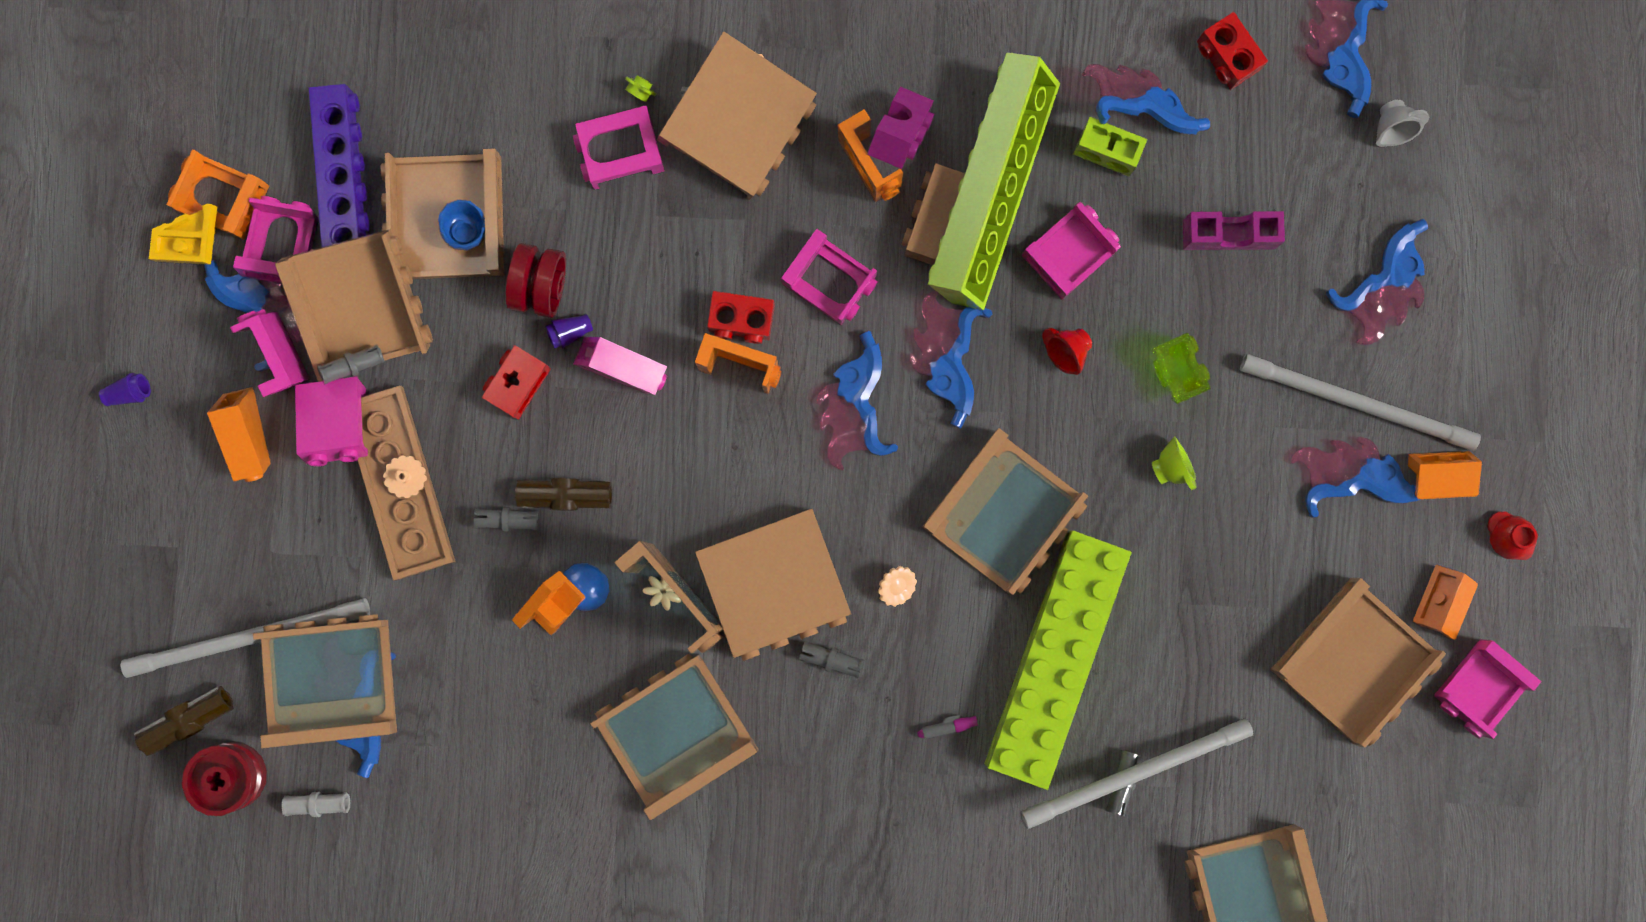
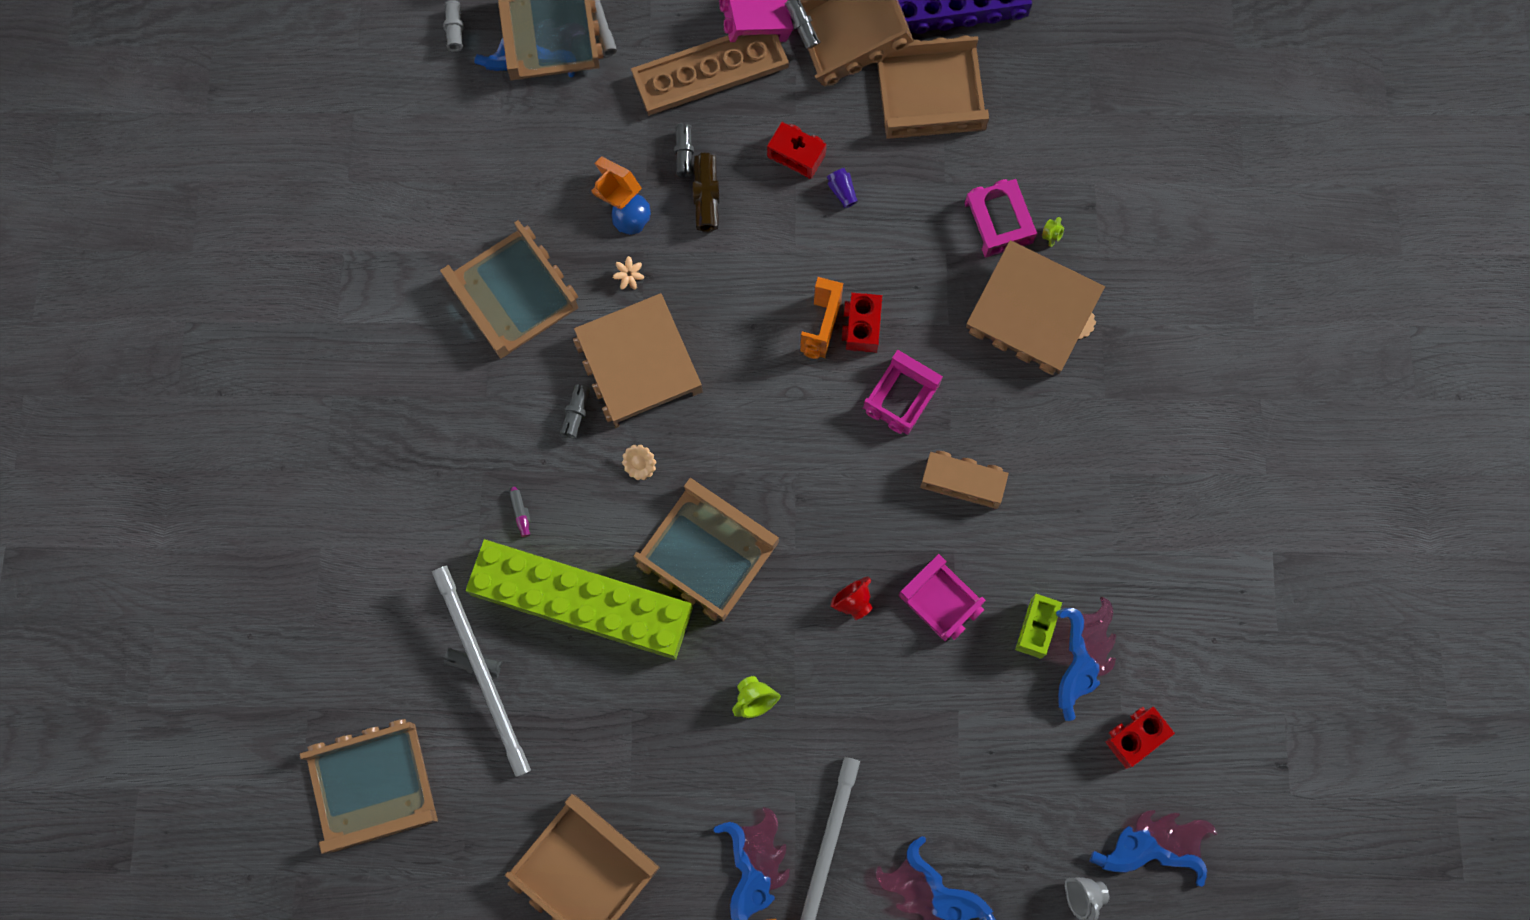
camera: 90 degrees right, 10 degrees down
(405, 476) = (714, 70): light nougat piece -> none
(462, 225) = (923, 97): blue hair -> none
(536, 280) = (881, 156): dark red wheel -> none
(620, 365) = (814, 229): slope -> none
(644, 553) = (626, 275): medium nougat panel -> none
(849, 409) = (789, 417): piece -> none
(850, 135) = (1026, 399): orange panel -> none
(902, 128) = (1046, 448): magenta arch -> none
(942, 352) = (846, 493): piece -> none
(994, 181) = (997, 523): lime brick -> none
(1179, 369) = (842, 699): clear neon green cylinder -> none
(1251, 232) = (969, 741): magenta arch -> none

